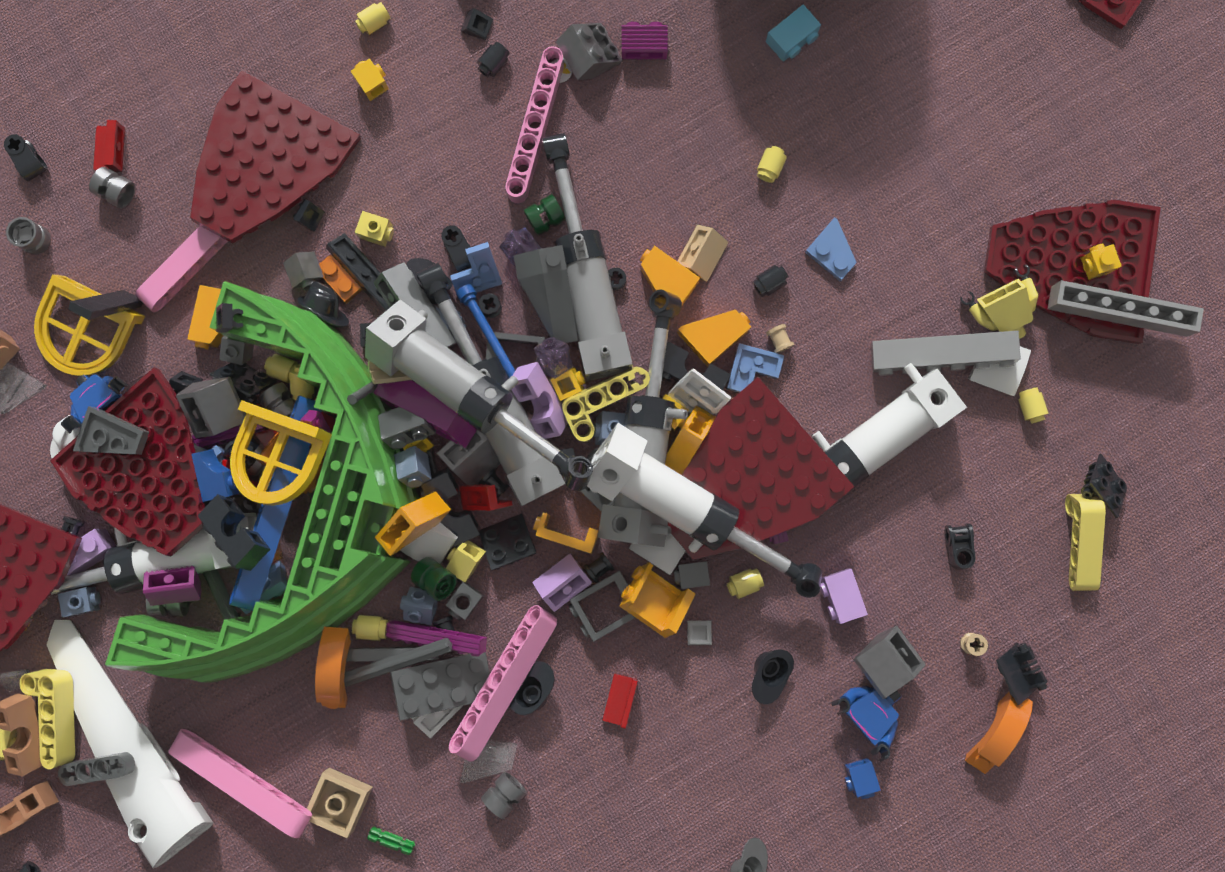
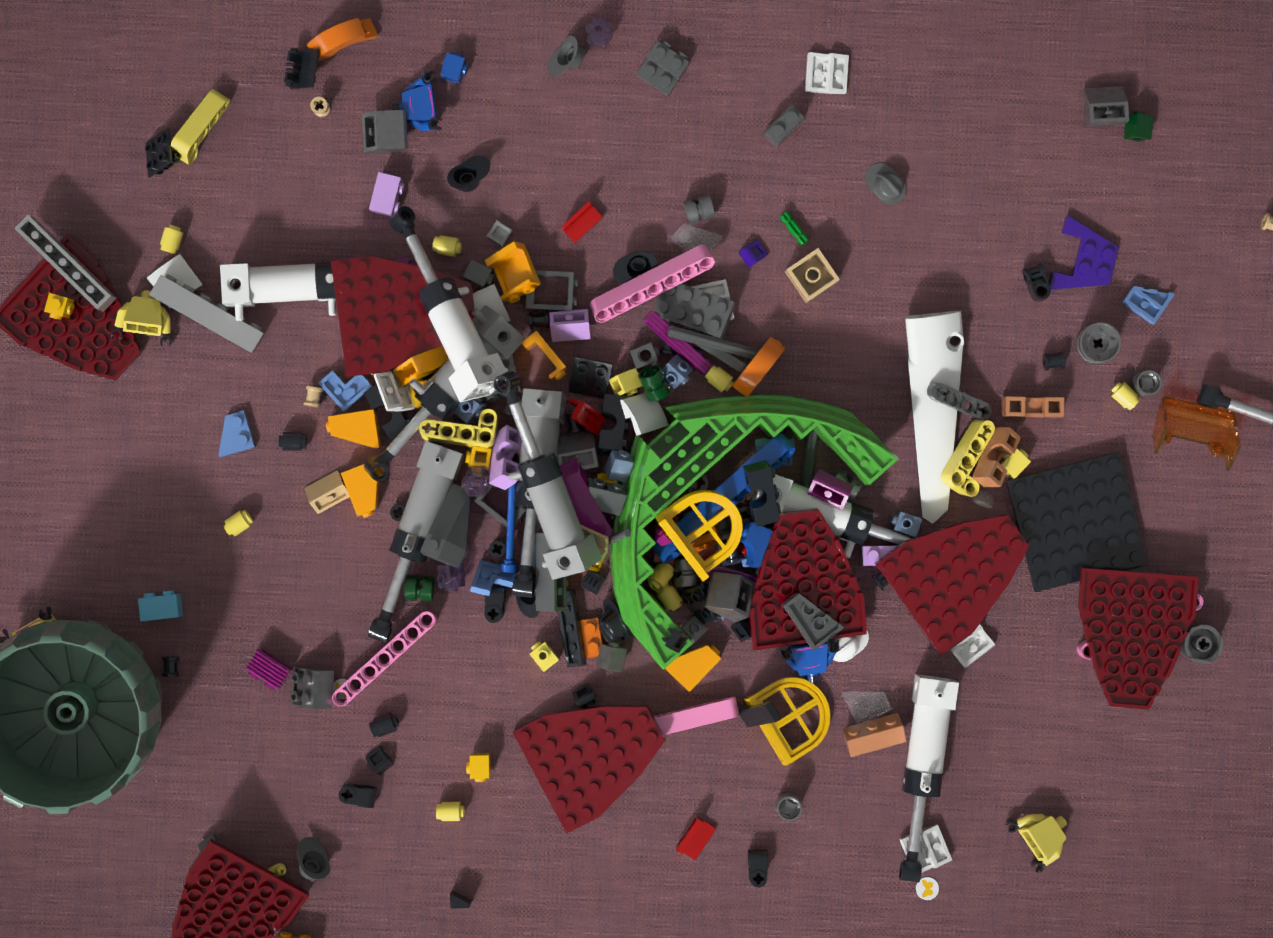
camera: 150 degrees left, 5 degrees up
(112, 187) = (710, 806): flat silver wheel -> none
(240, 783) = (868, 330): bright pink beam -> none
(412, 522) = (641, 426): light orange slope -> none
(418, 784) = (753, 253): none -> dark purple slope
(962, 543) = (284, 178): black piece -> none

